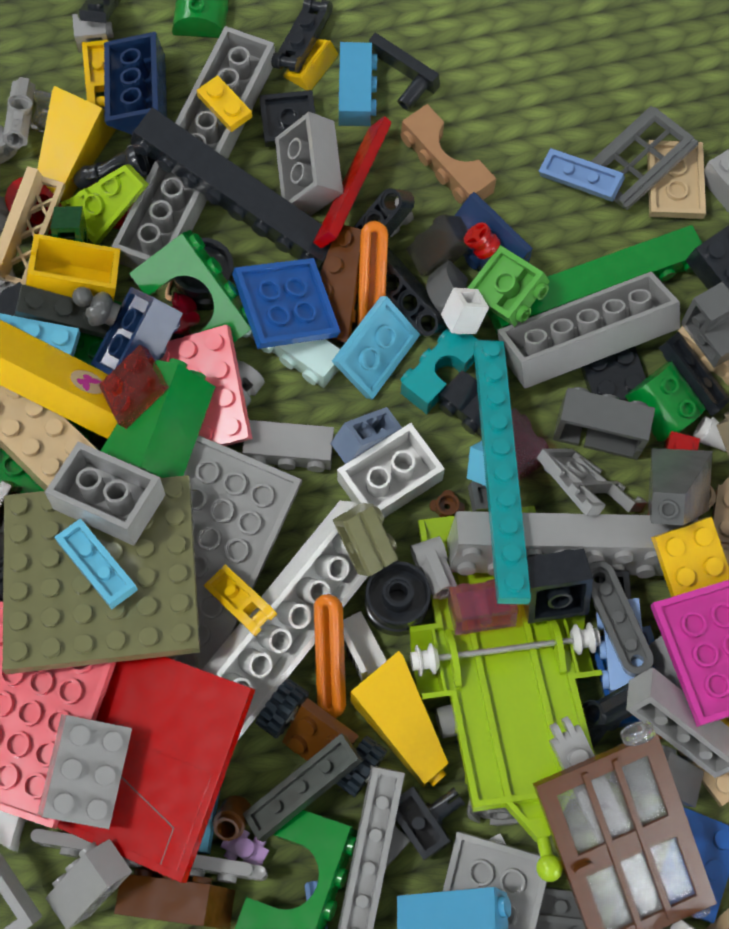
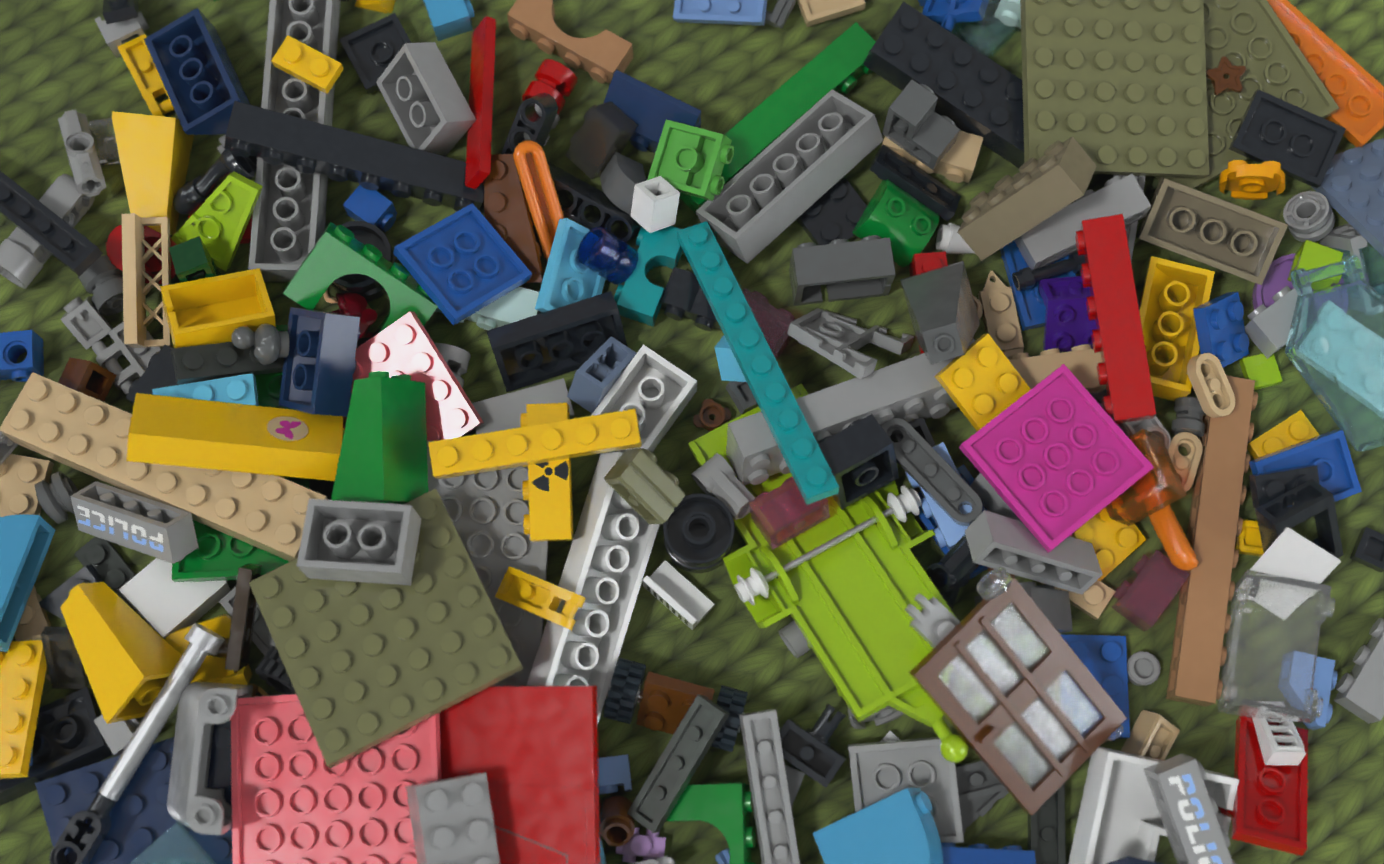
camera: 20 degrees left, 5 degrees up
(96, 563) = (379, 619): medium azure plate -> none
(133, 386) = (341, 417): clear red plate -> none
(231, 234) = (371, 208): none -> blue brick
(244, 775) = (614, 772): none -> medium blue brick
(285, 467) = (535, 444): none -> yellow brick
(289, 497) = (548, 484): none -> yellow brick
(330, 654) = (652, 618): orange piece -> none
(337, 393) = (554, 340): none -> black slope
(397, 714) = (747, 654): yellow slope -> none
(409, 339) = (607, 255): none -> clear blue wheel
(421, 185) = (554, 80): none -> red wheel
(482, 240) = (644, 121): red wheel -> none

